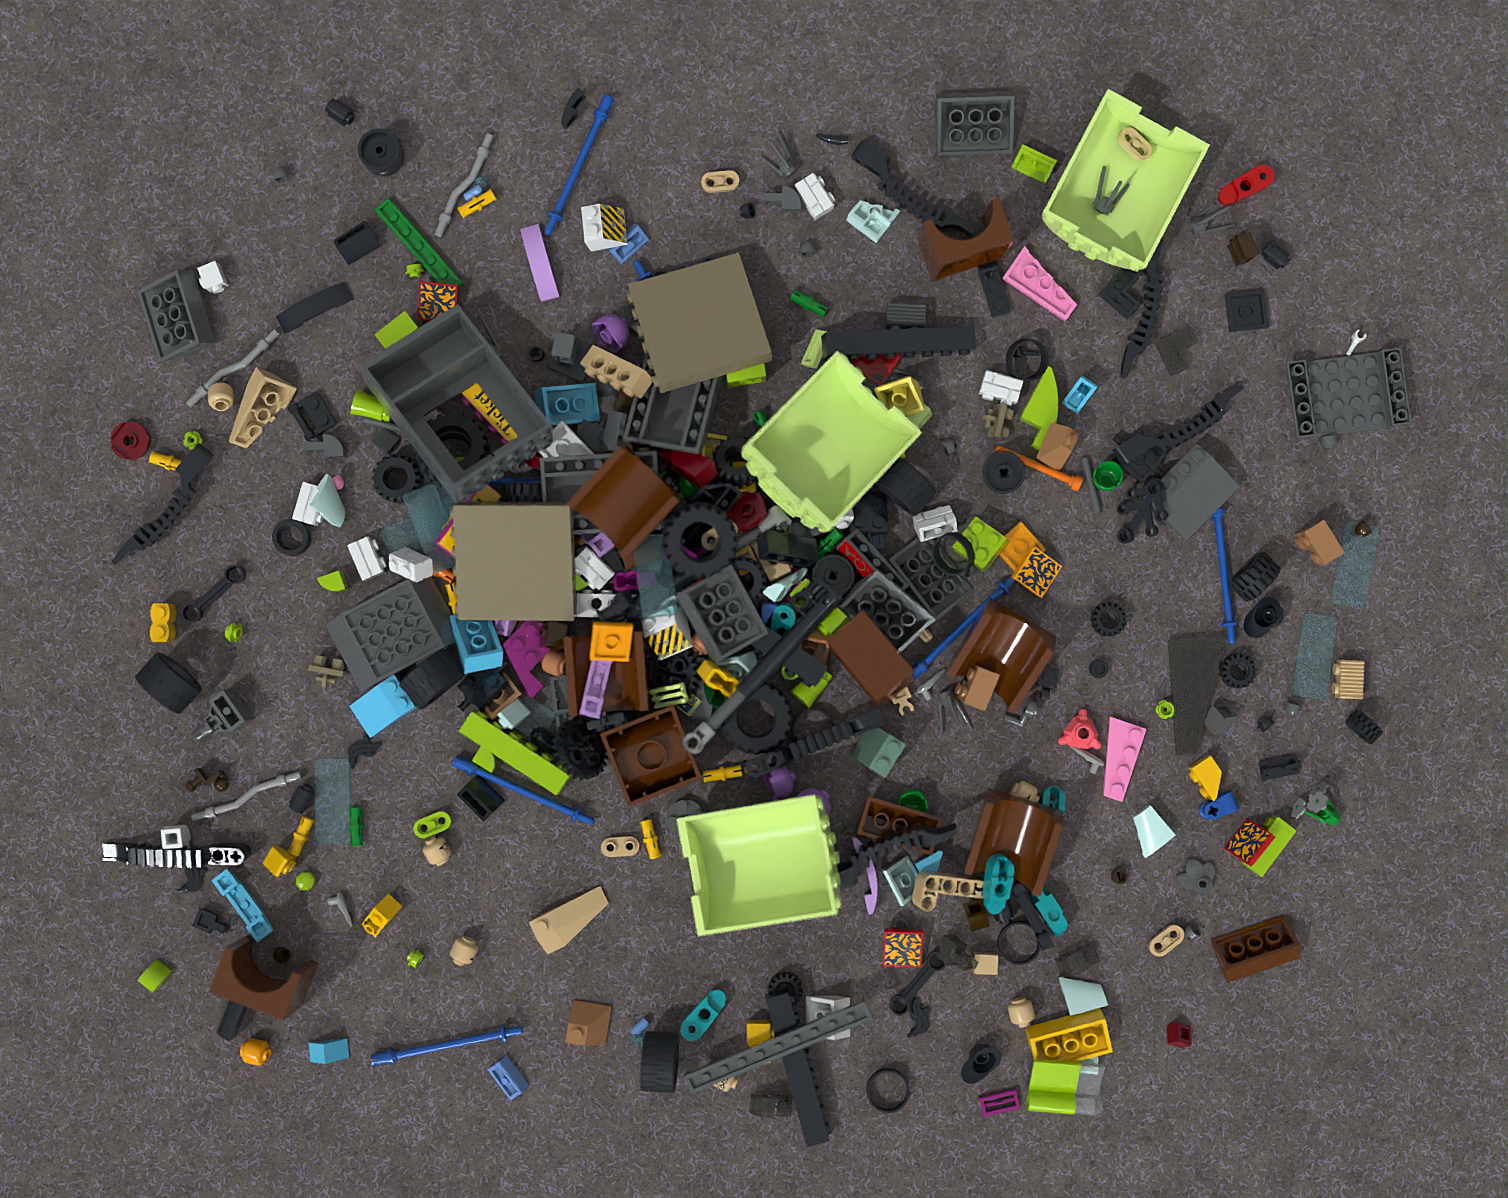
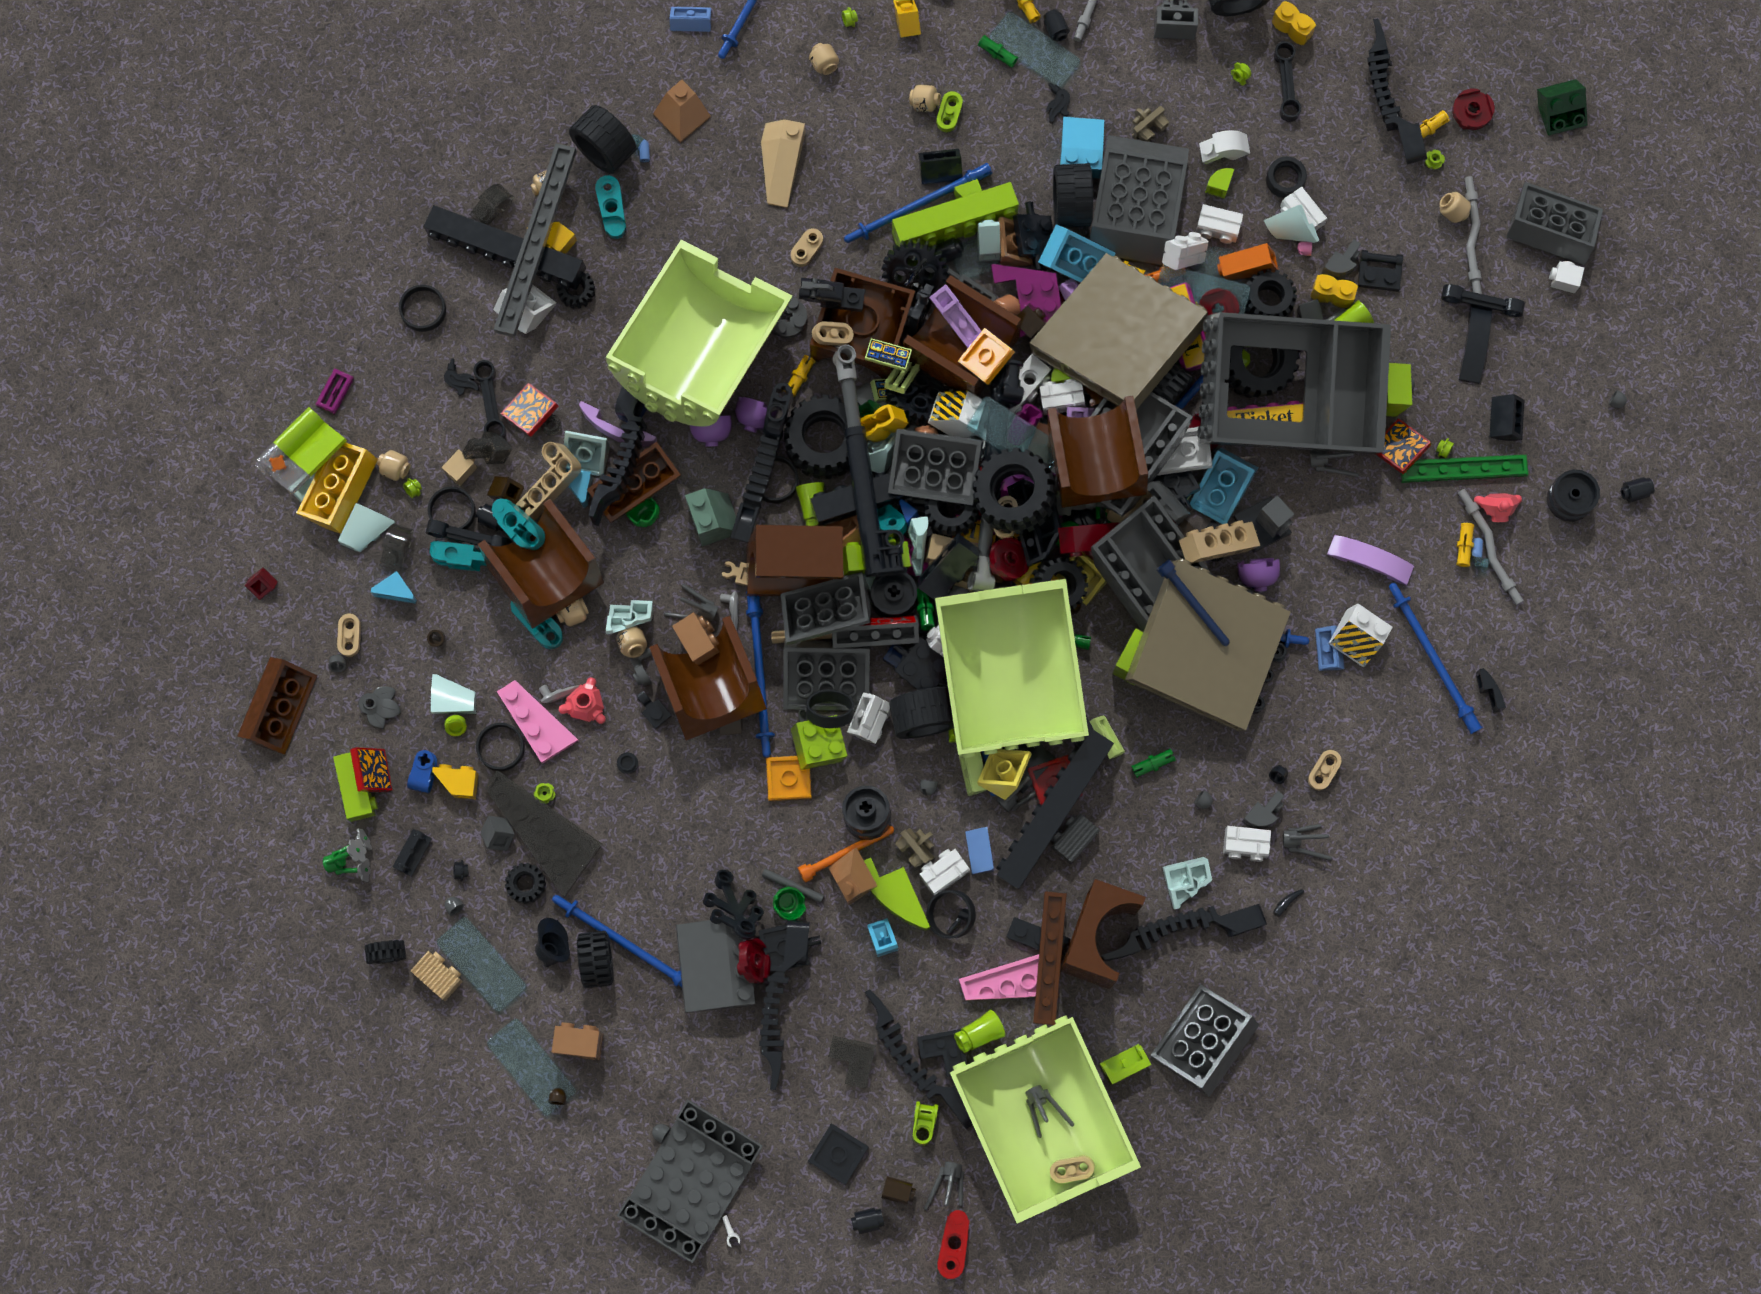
camera: 130 degrees right, 10 degrees down
(77, 376) = (1563, 106): none -> dark green slope
(261, 401) = (1425, 238): tan wedge -> none
(271, 307) = (1508, 306): none -> black piece
(302, 599) = (1225, 144): none -> white brick
(356, 440) = (1338, 292): none -> yellow brick
(383, 513) = (1247, 262): none -> orange slope
(426, 507) = (1221, 296): none -> dark red plate
(428, 200) = (1499, 505): none -> coral rock
(539, 350) = (1289, 490): black hinge -> none
(650, 838) = (781, 270): yellow pin -> none
(653, 790) = (831, 294): none -> black plate
(665, 714) = (888, 354): none -> tile
(674, 385) = (1168, 570): none -> dark blue piece
(682, 768) = (830, 333): none -> tan plate
(965, 375) = (979, 850): none -> medium blue slope
(980, 1063) = (380, 398): black piece -> none
(997, 751) = (627, 616): none -> light aqua slope
(1004, 267) = (1049, 958): none -> reddish brown plate
(1013, 734) = (631, 642): none -> tan head
(1025, 985) = (412, 487): none -> lime plate
(1036, 571) = (755, 774): tile -> none
(1088, 1096) = (277, 463): none -> orange piece
(1092, 276) = (980, 1032): none -> lime plant
(1107, 934) = (393, 589): none -> medium azure slope
(1118, 613) = (672, 814): black tyre -> none
(1168, 811) = (455, 725): none -> lime tile
(1171, 465) = (753, 961): none -> dark red plate
(1177, 772) = (487, 729): none -> black tyre
(1179, 270) = (924, 1121): none -> lime piece

